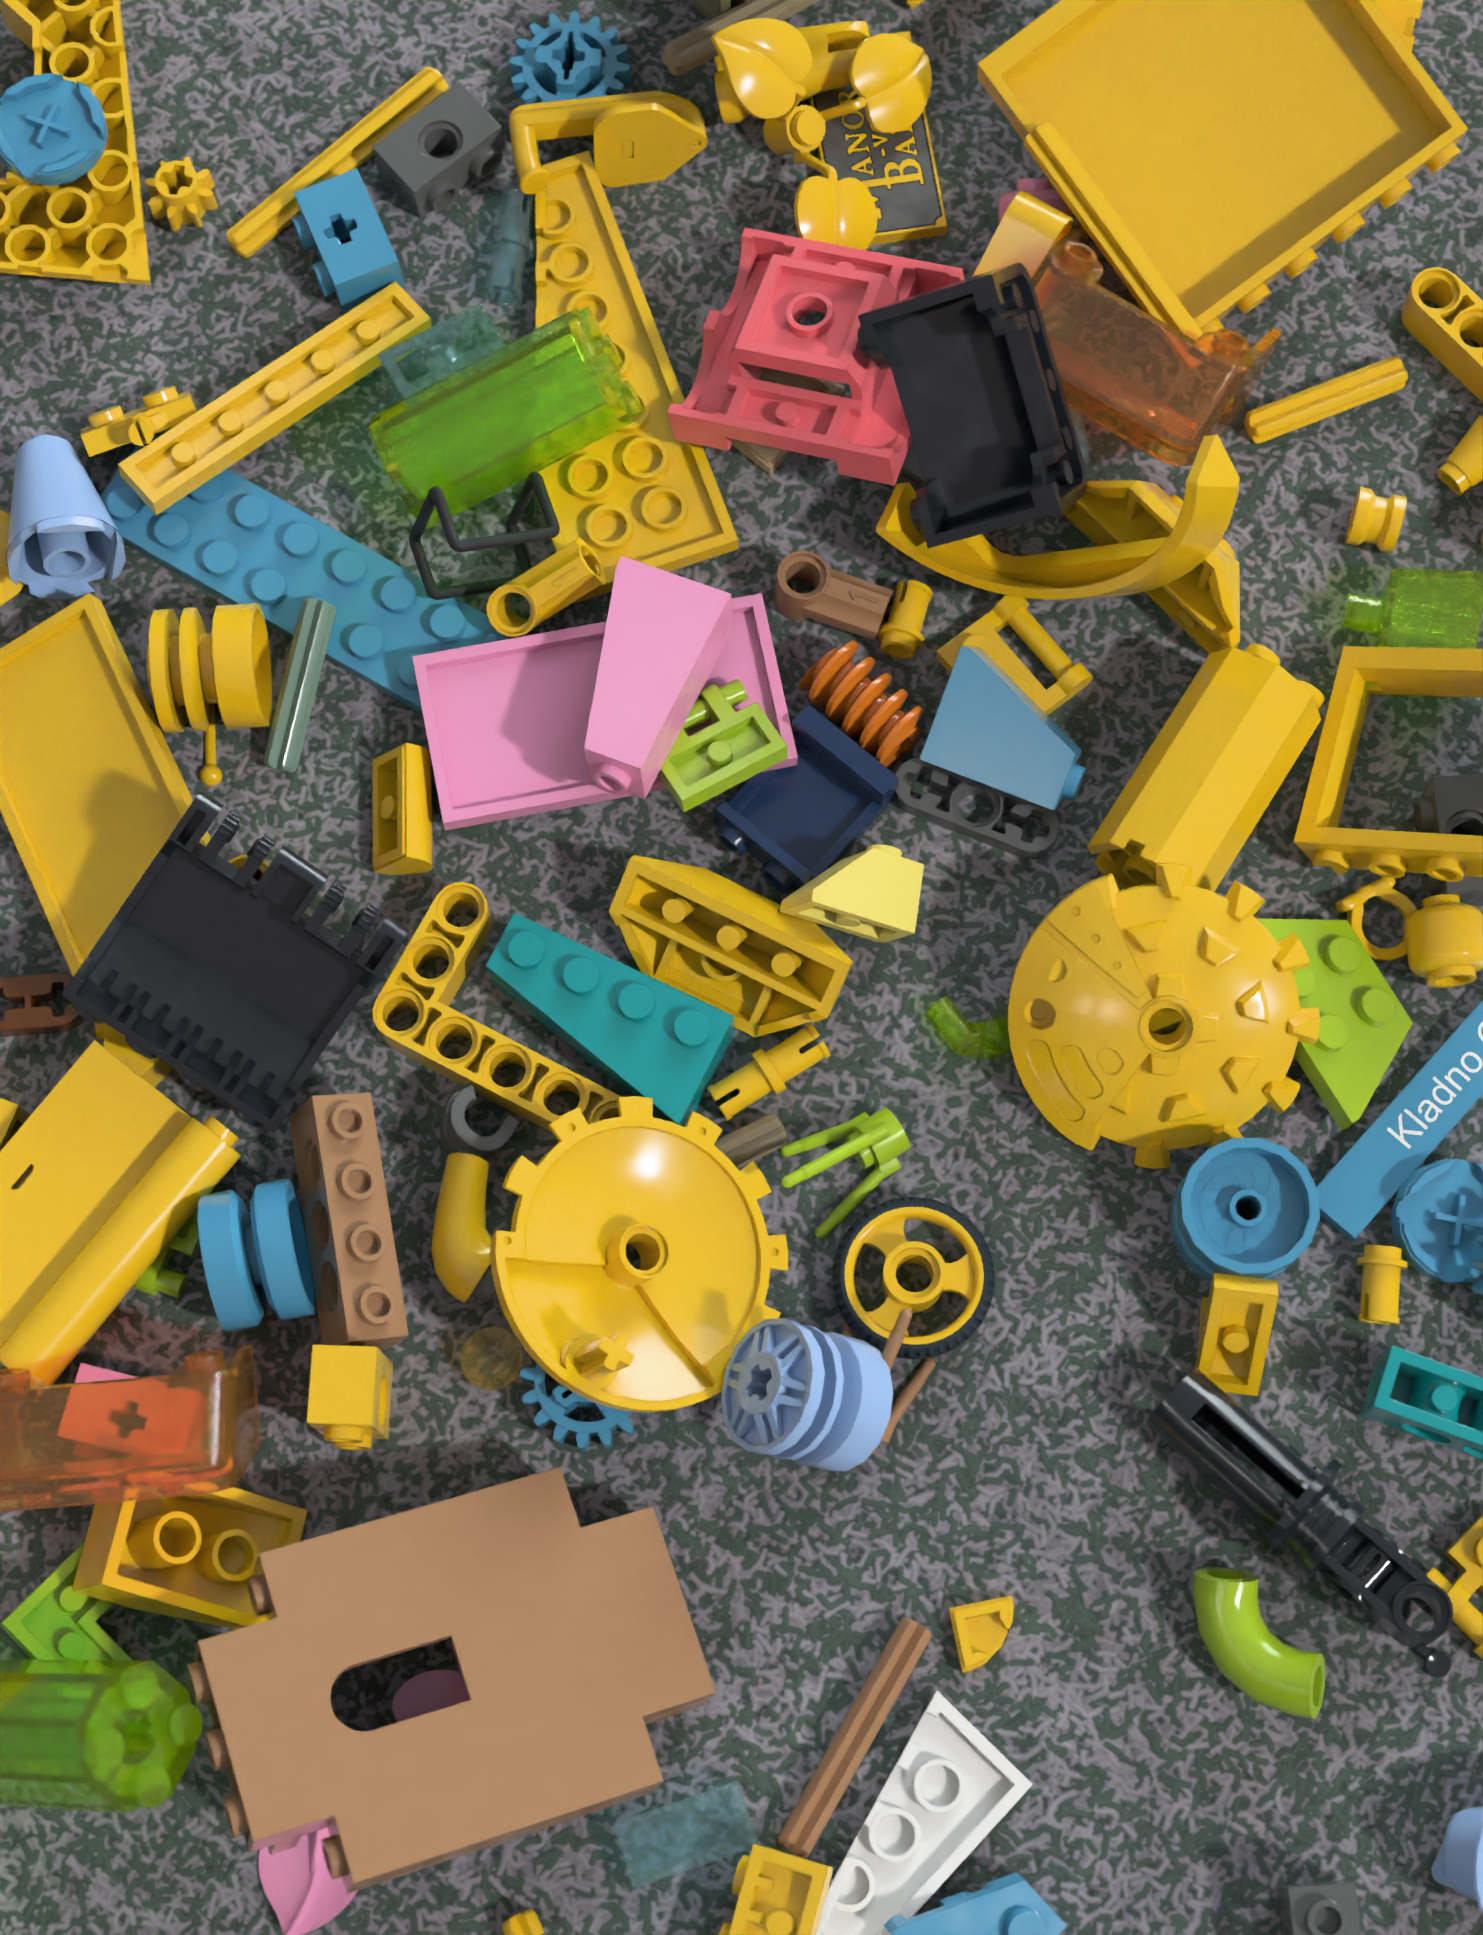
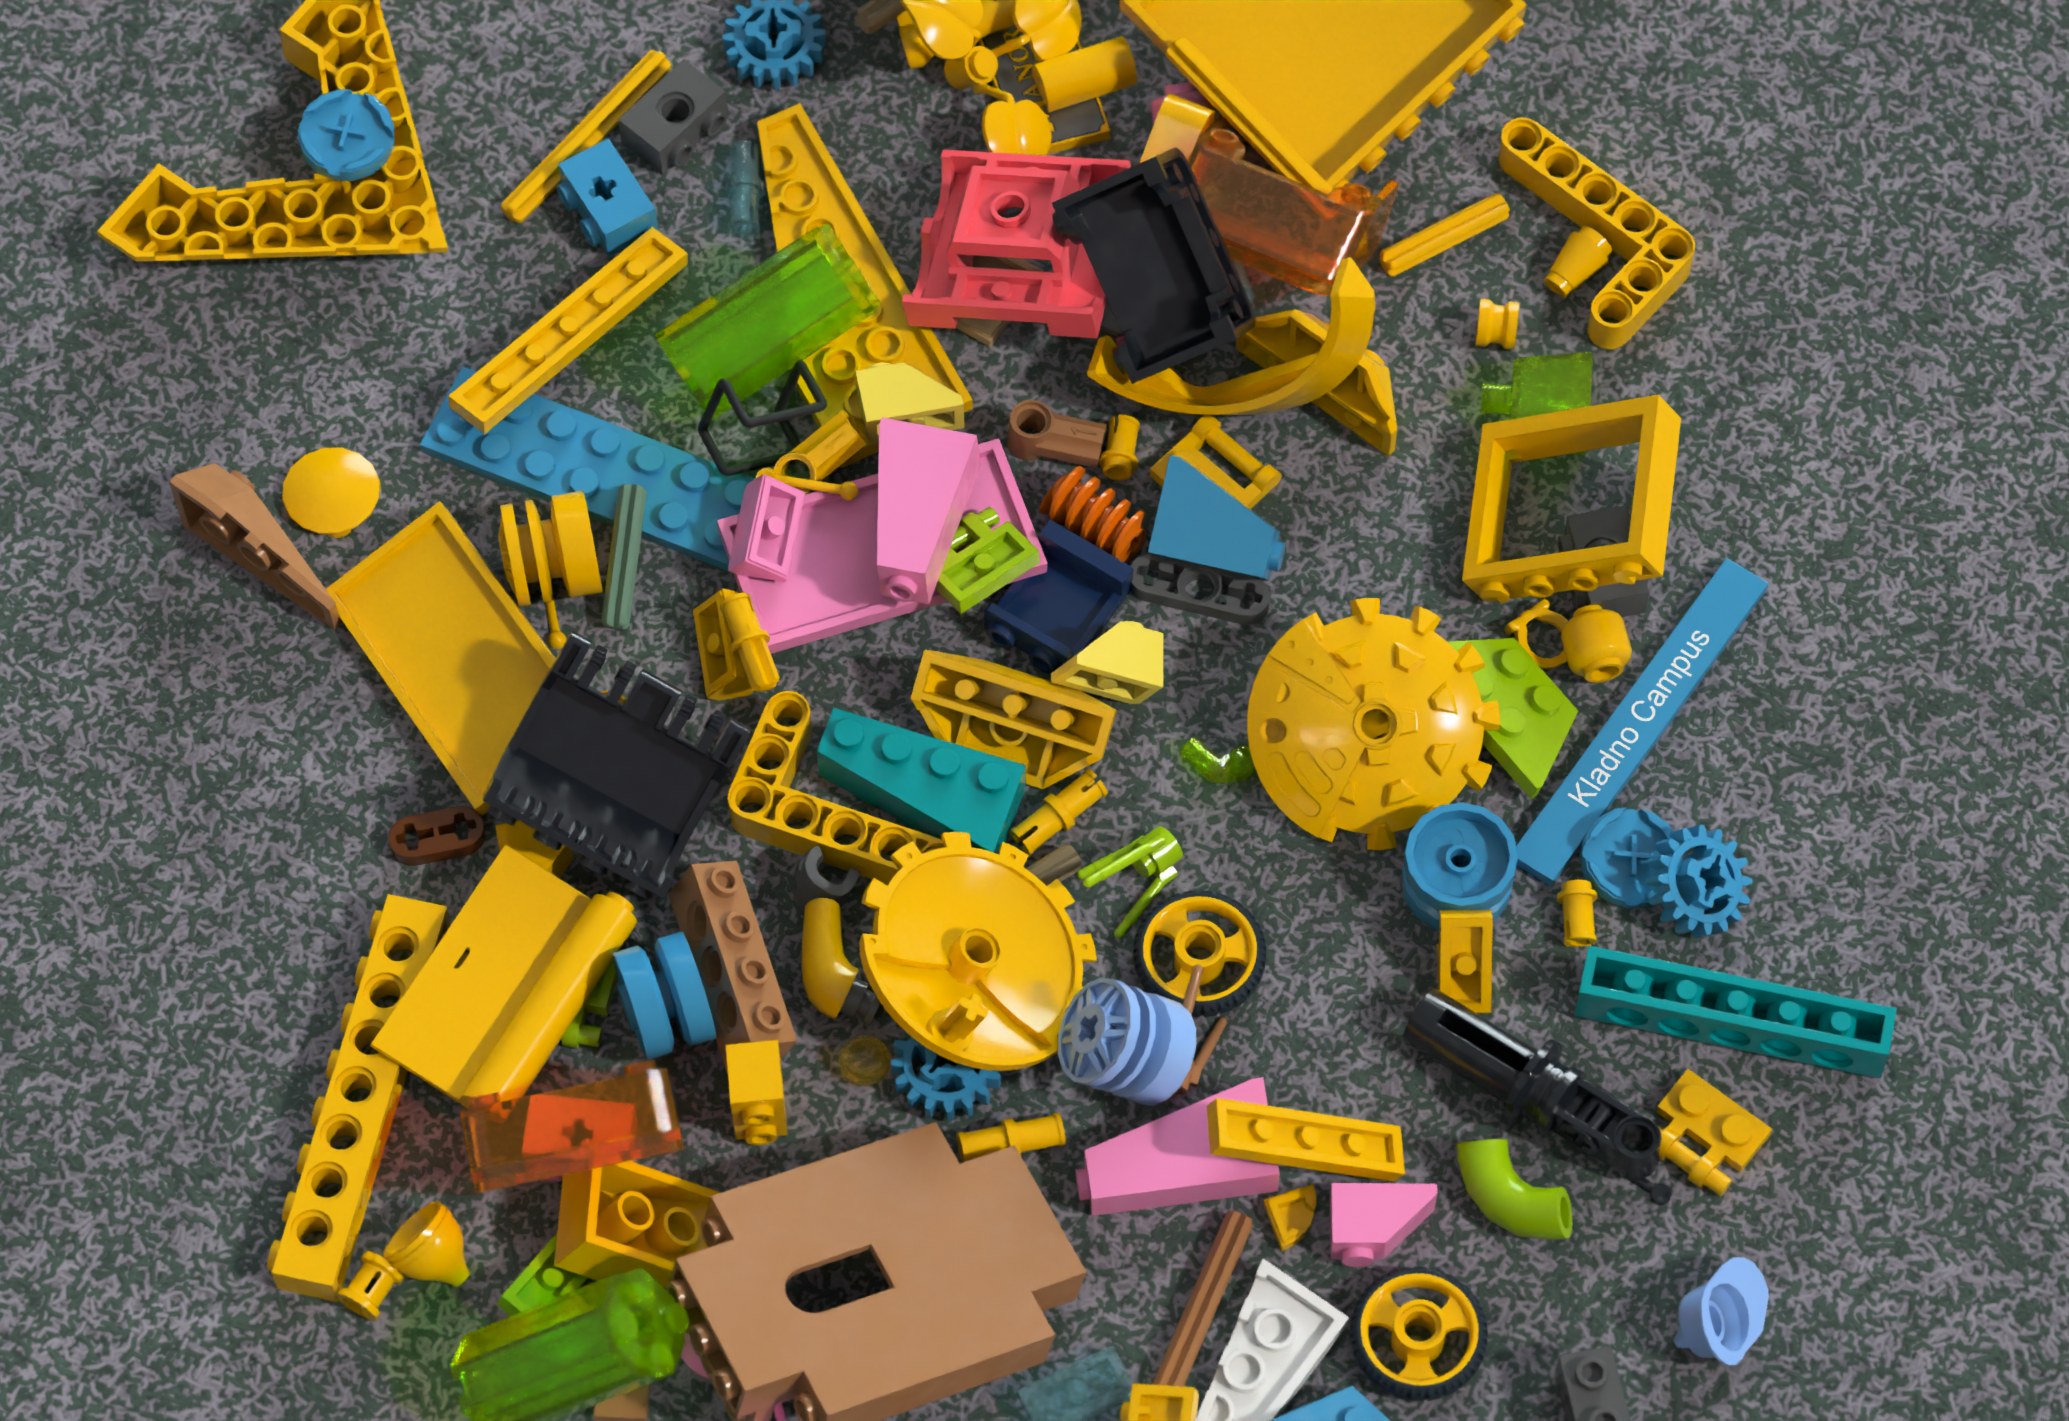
camera: 10 degrees left, 10 degrees down
(57, 524) = (402, 452): light blue cone -> none
(113, 428) = (470, 354): yellow plate -> none
(181, 193) = (456, 187): yellow gear -> none
(427, 816) = (750, 641): none -> yellow axle
(438, 352) = (701, 278): clear light blue brick -> none
(468, 676) = (766, 529): none -> bright pink slope
(480, 610) = (847, 490): none -> yellow hinge
(634, 136) = (838, 89): yellow piece -> none
(653, 1486) = (1025, 1135): none -> yellow pin
(656, 532) = (905, 396): none -> light yellow slope
(870, 1540) = (1172, 1162): none -> bright pink slope
(927, 153) = (1085, 73): none -> yellow brick
(1007, 1552) = (1305, 1140): none -> yellow plate
(1079, 1657) = (1375, 1218): none -> bright pink slope
(1170, 1795) = (1417, 1378): none -> yellow wheel
(1209, 770) = (1387, 527): yellow brick -> none

